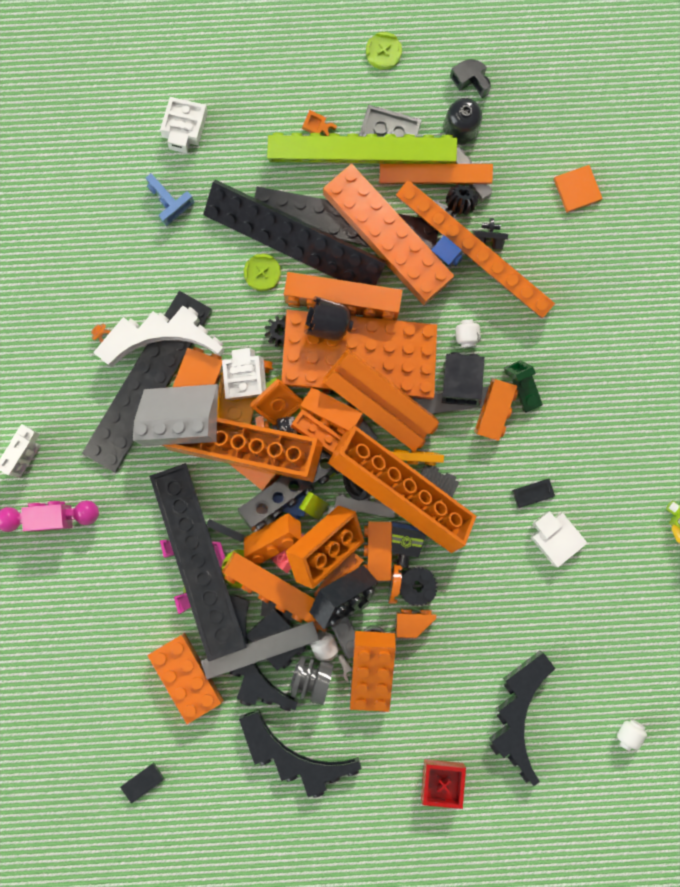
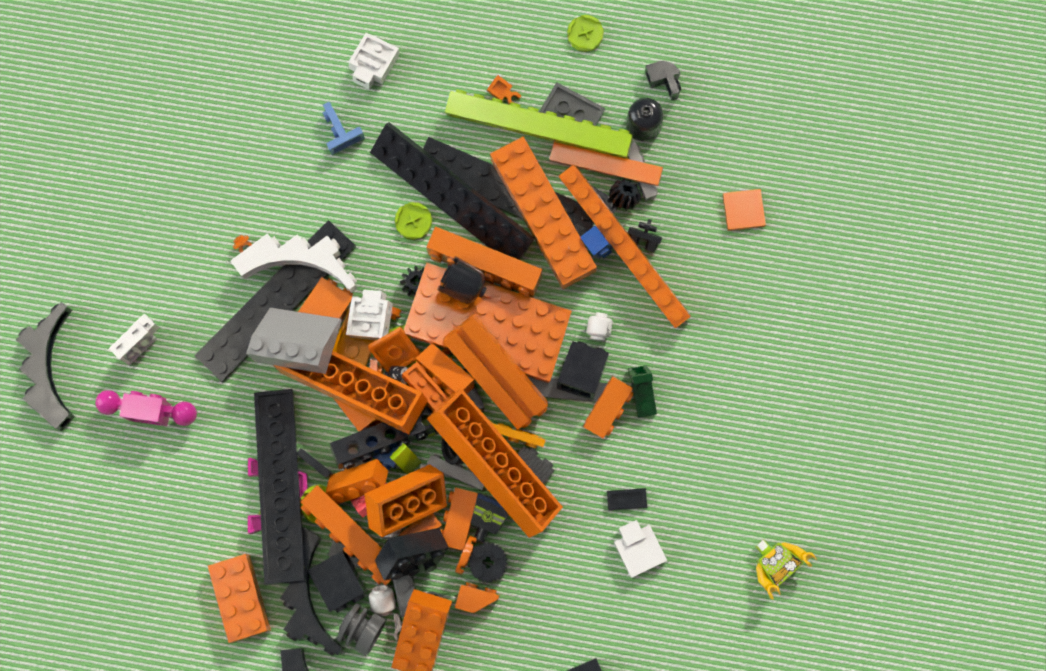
camera: 20 degrees right, 5 degrees down
(262, 650) = (319, 587): tile -> none

